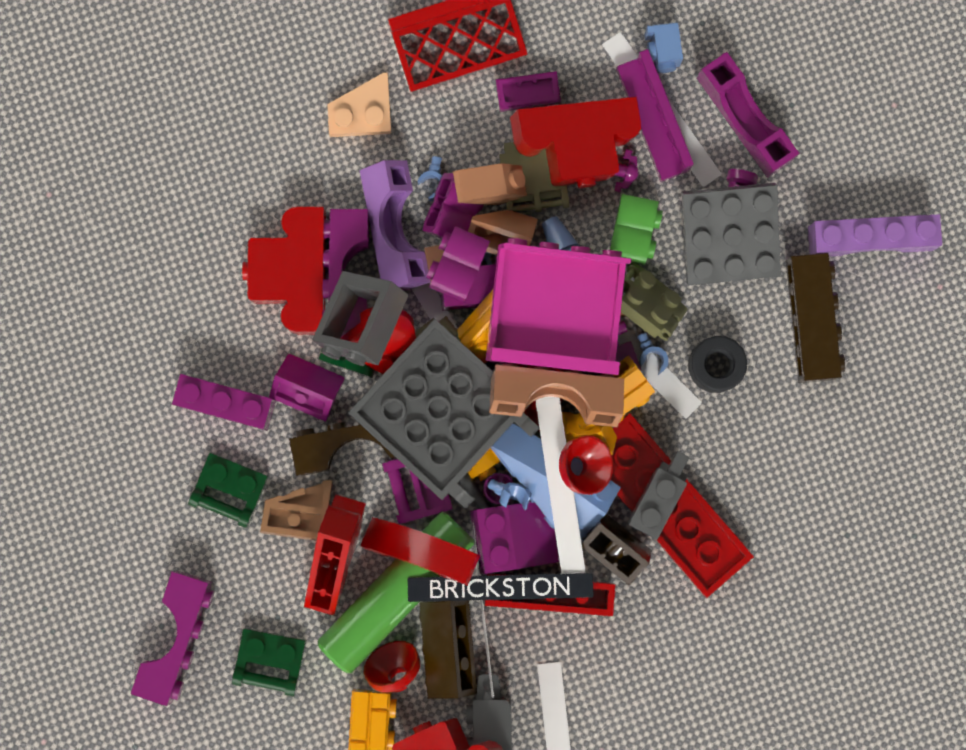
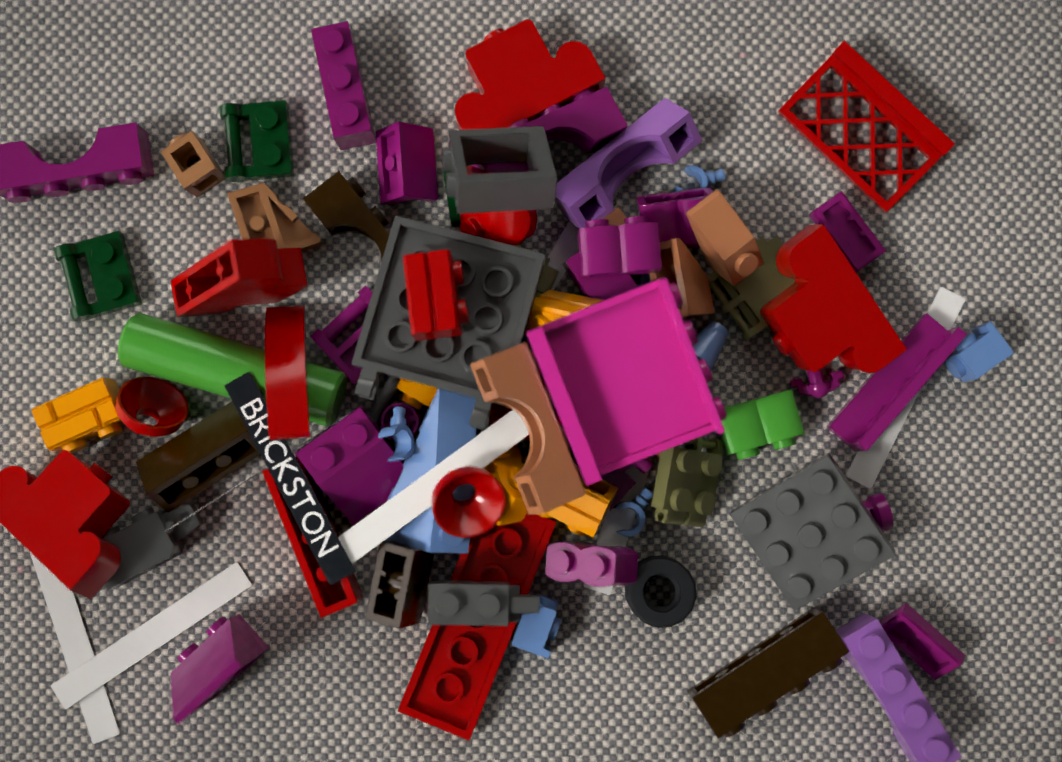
camera: 70 degrees right, 0 degrees up
(208, 547) = (182, 153): none -> medium nougat brick
(362, 110) = (731, 70): light nougat wing -> none
(424, 412) = (433, 295): none -> red brick
(606, 712) = (213, 665): none -> magenta slope
(673, 402) = (591, 564): none -> magenta brick
(699, 466) = (536, 628): none -> medium blue brick
(730, 94) = (934, 514): magenta arch -> none
(848, 198) = (921, 642): none -> magenta plate

